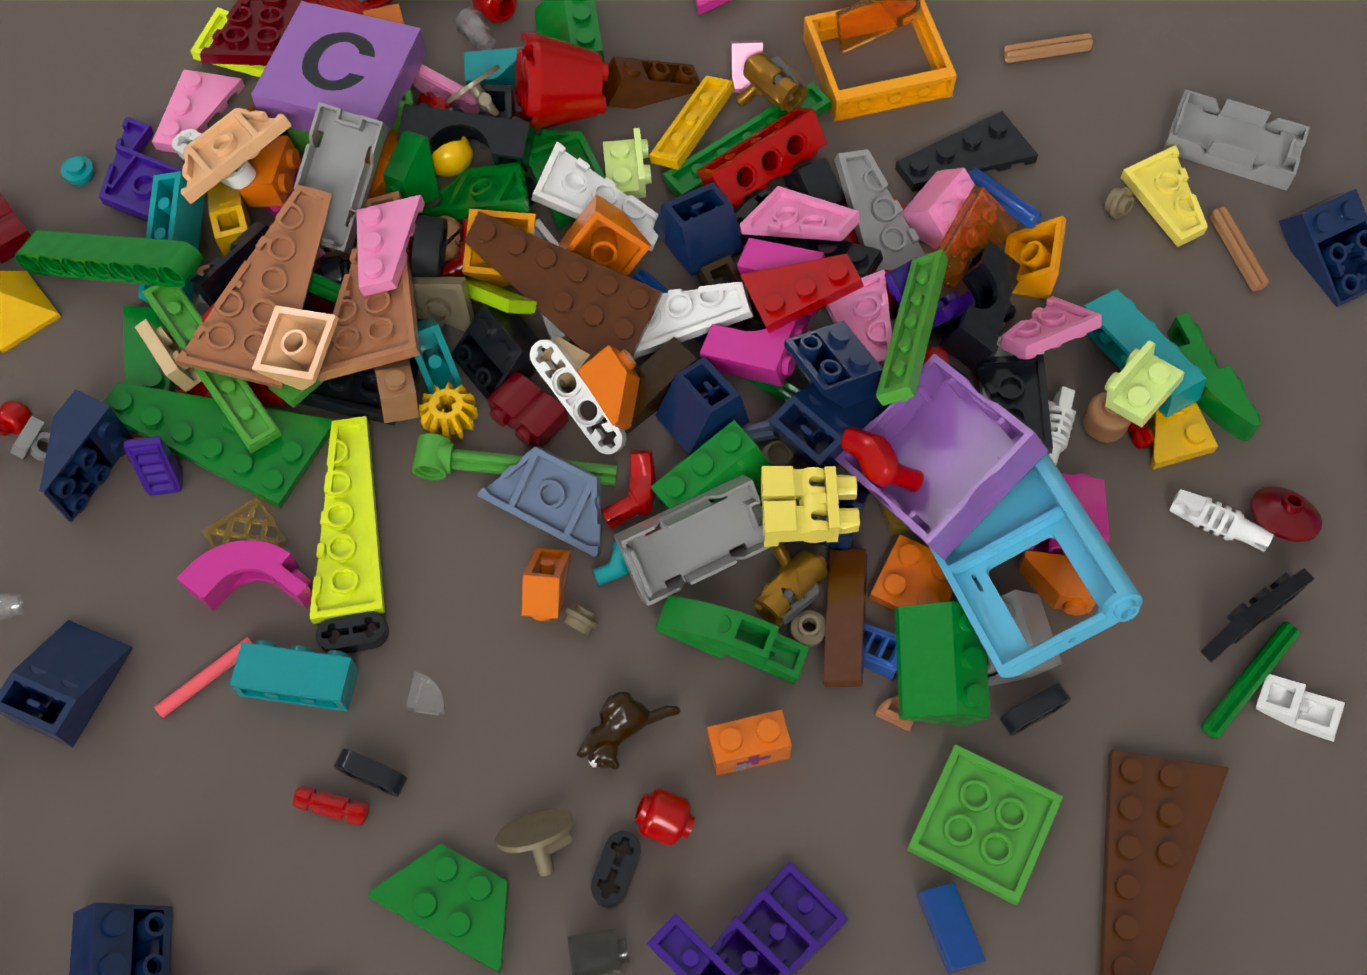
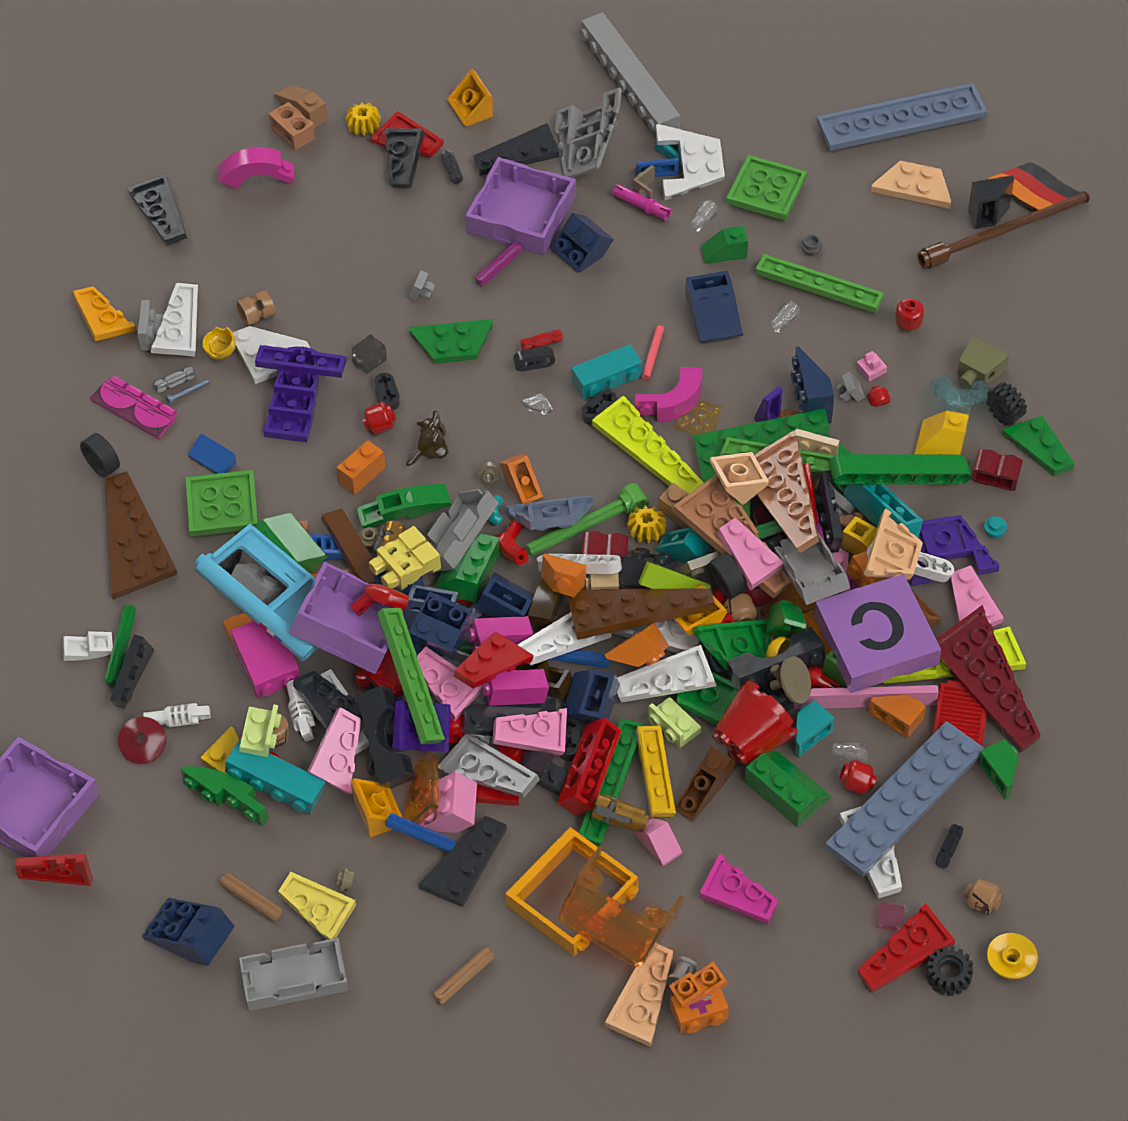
camera: 145 degrees right, 10 degrees down
(540, 832) = (434, 375): dark tan shield -> none

